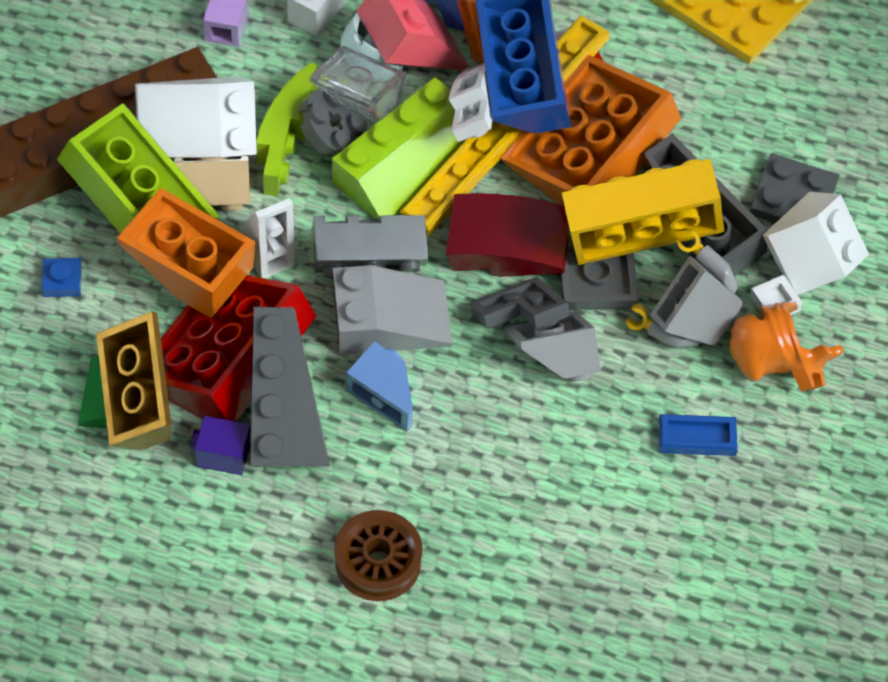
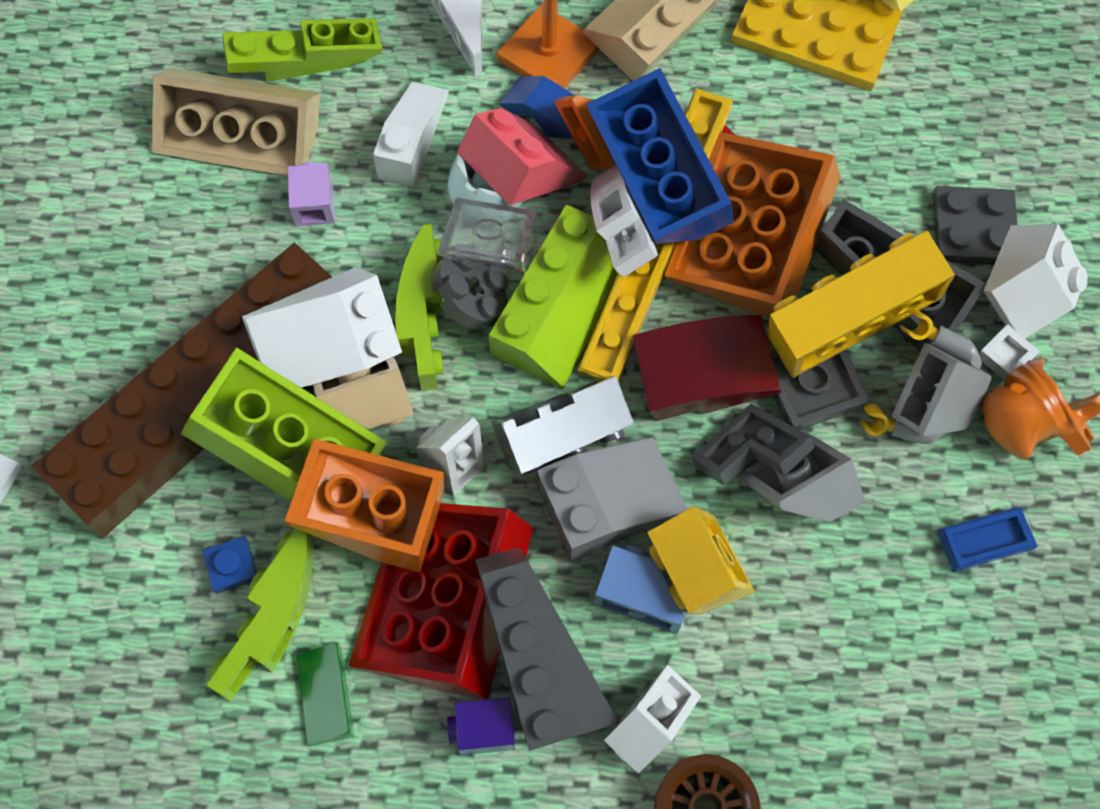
camera: 15 degrees left, 10 degrees up
(92, 310) = (281, 598): none -> lime slope
(134, 383) = (363, 696): pearl gold slope -> none
(359, 478) = (653, 719): none -> white slope
(442, 374) = (698, 562): none -> yellow slope

